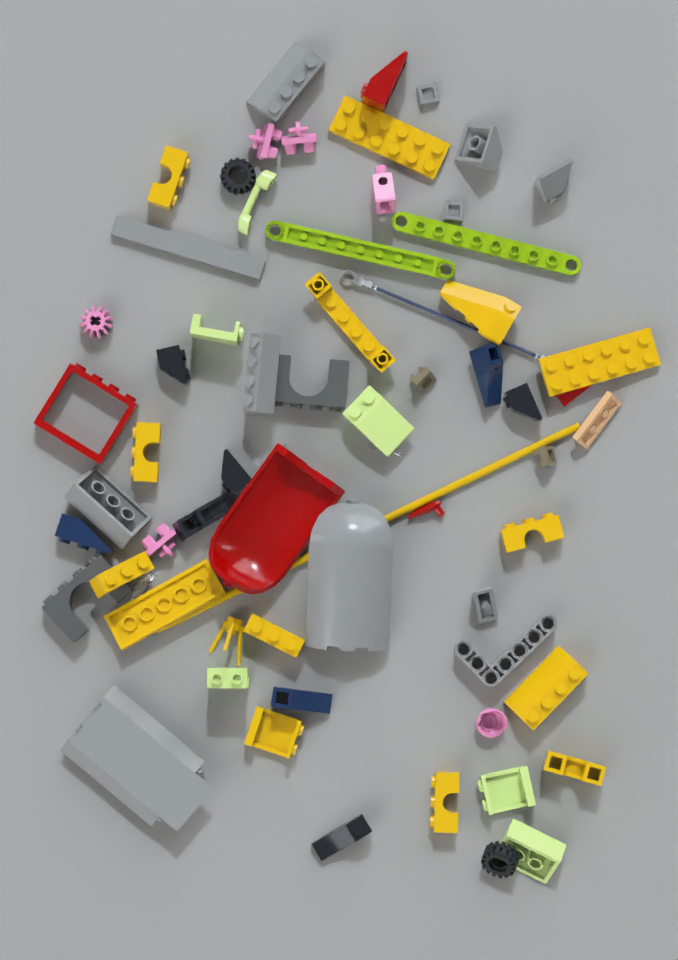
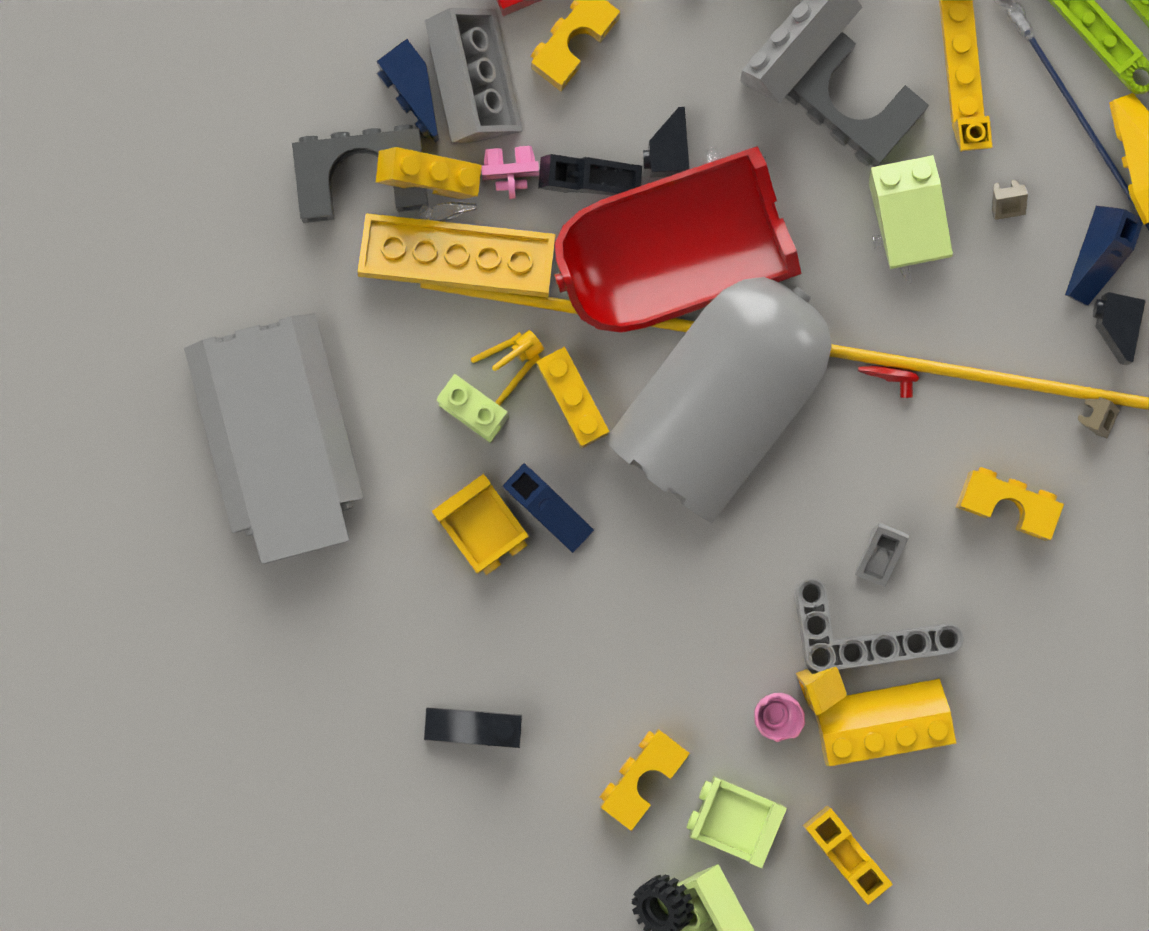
camera: 30 degrees right, 0 degrees up
(502, 693) = (821, 689): none -> yellow slope

